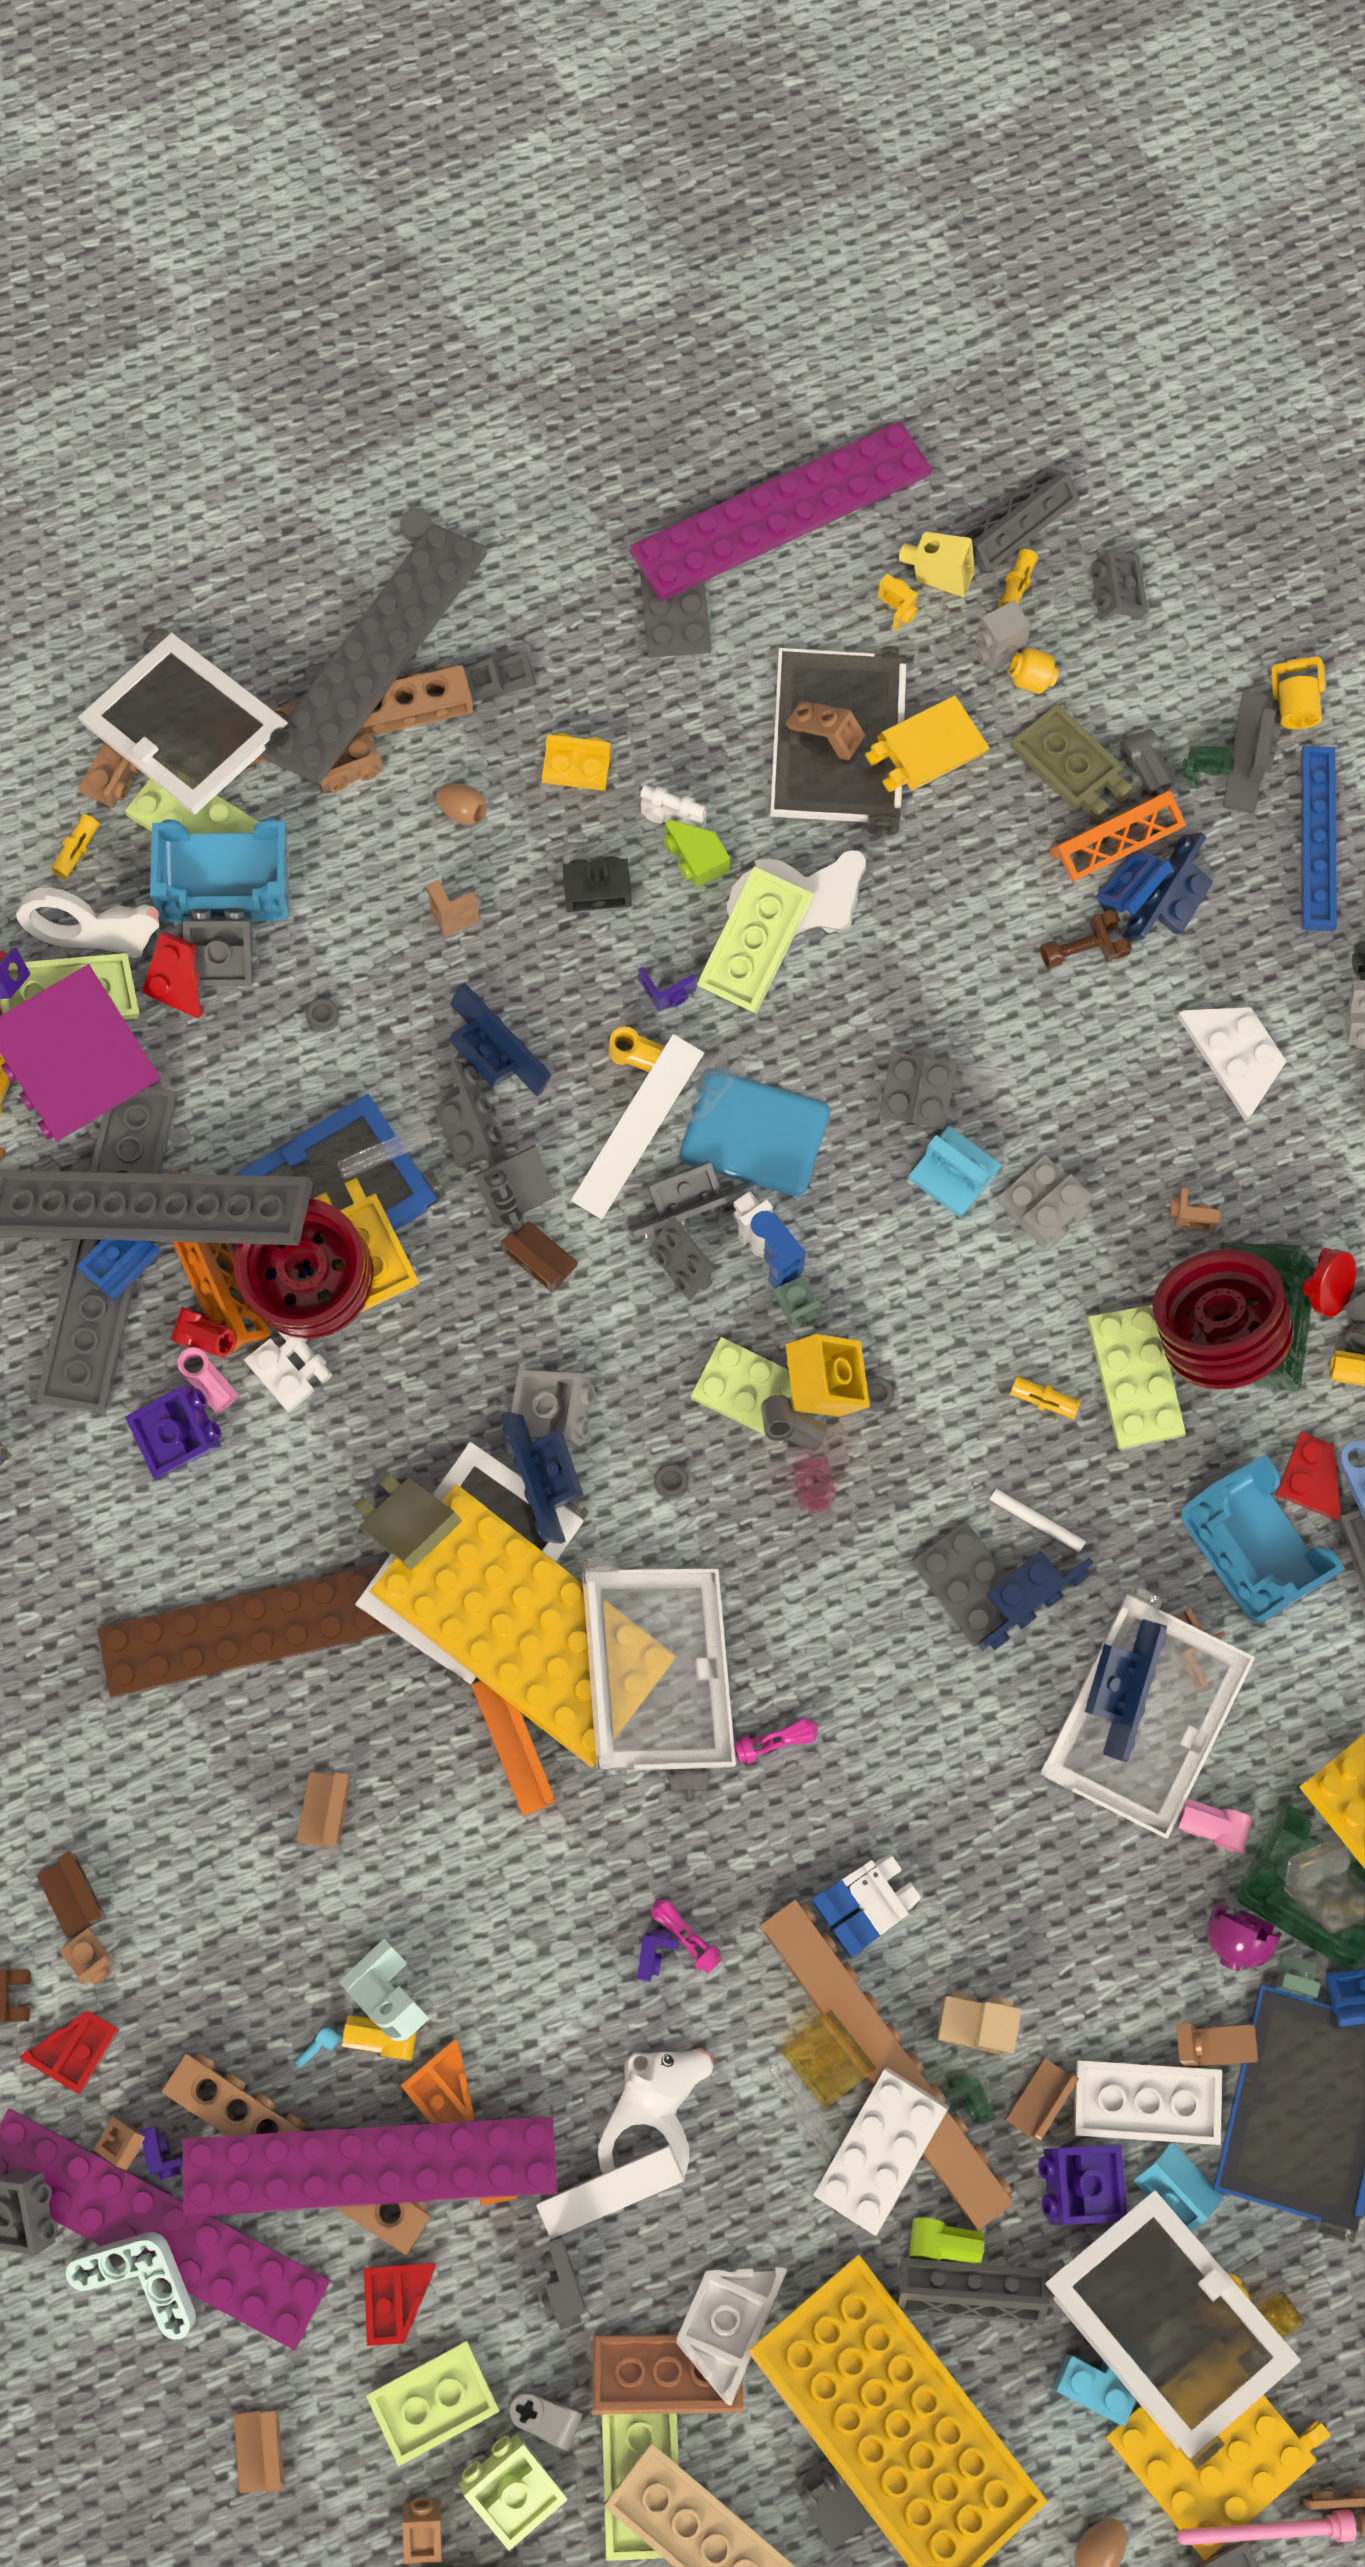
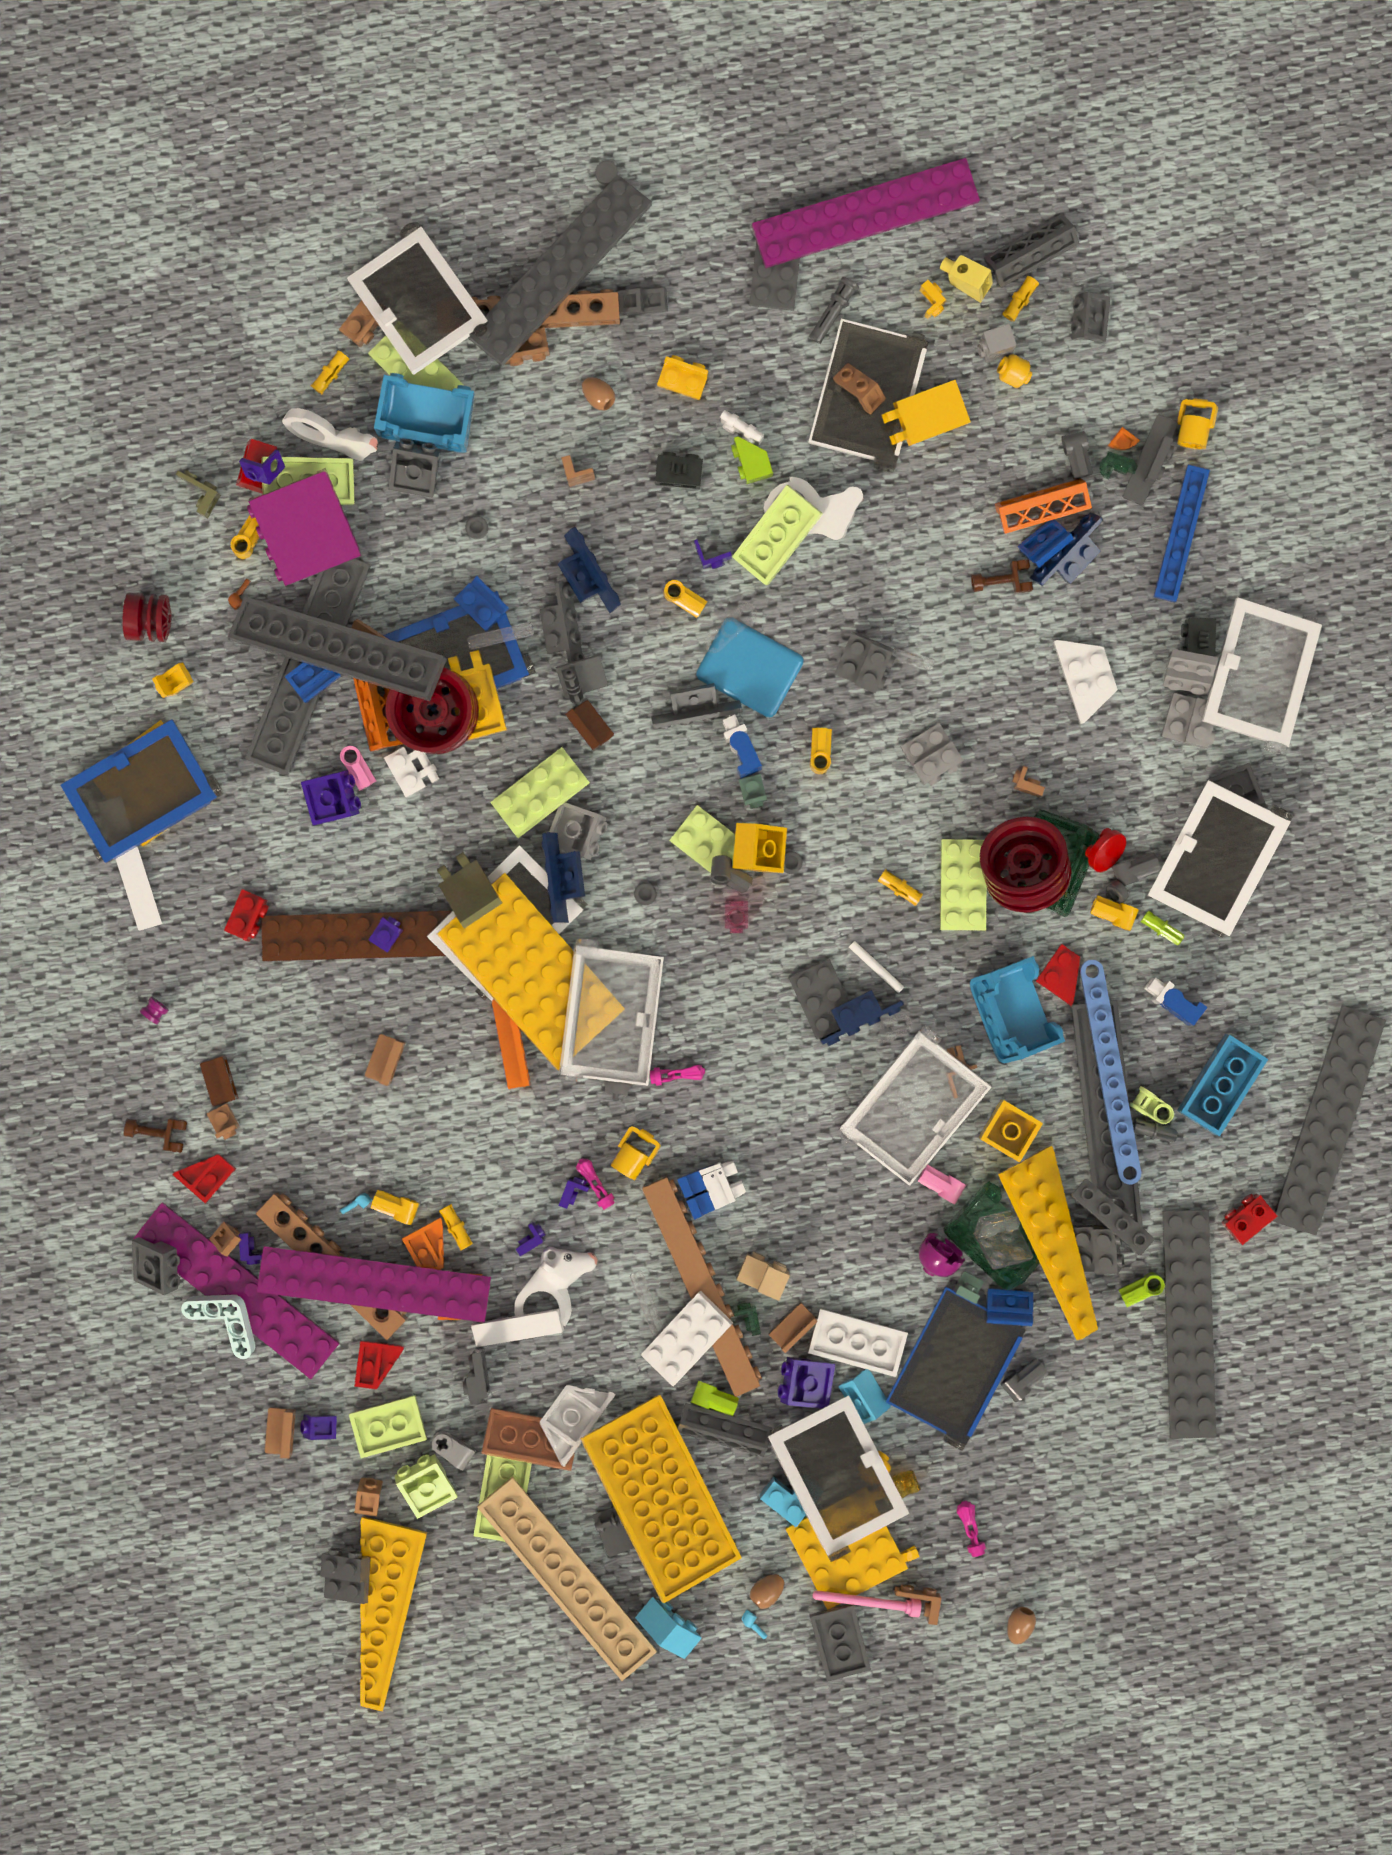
camera: 15 degrees right, 15 degrees up
(74, 1633) = (246, 915): none -> red bracket
(174, 975) = (381, 482): red wing -> none
(198, 1331) = (356, 734): red piece -> none
(293, 1612) = (386, 933): none -> dark purple bracket
(321, 2428) = (318, 1427): none -> dark purple bracket
(348, 1114) = (481, 603): none -> blue plate
(386, 2006) = (399, 1189): light aqua piece -> none
(482, 2050) = (455, 1227): none -> yellow pin
(485, 1364) = (540, 792): none -> yellowish green plate
(599, 2051) = (528, 1243): none -> dark purple bracket
(637, 1126) = (672, 649): white sticker -> none
(682, 1259) = (681, 749): dark grey hinge -> none
(734, 1884) = (629, 1158): none -> yellow piece
(770, 627) = (838, 301): none -> dark grey pin
(828, 2059) = (666, 1277): clear yellow plate -> none
(883, 1223) = (821, 748): none -> yellow piece
(954, 1171) = (876, 722): medium azure bracket -> none
(1071, 762) = (1024, 443): olive tile -> none
(1123, 1687) = (902, 1089): dark blue bracket -> none
(1206, 733) = (1123, 440): none -> orange tile
(1216, 2045) = (908, 1318): medium nougat bracket -> none
(1299, 1719) = (1010, 1130): none -> yellow brick

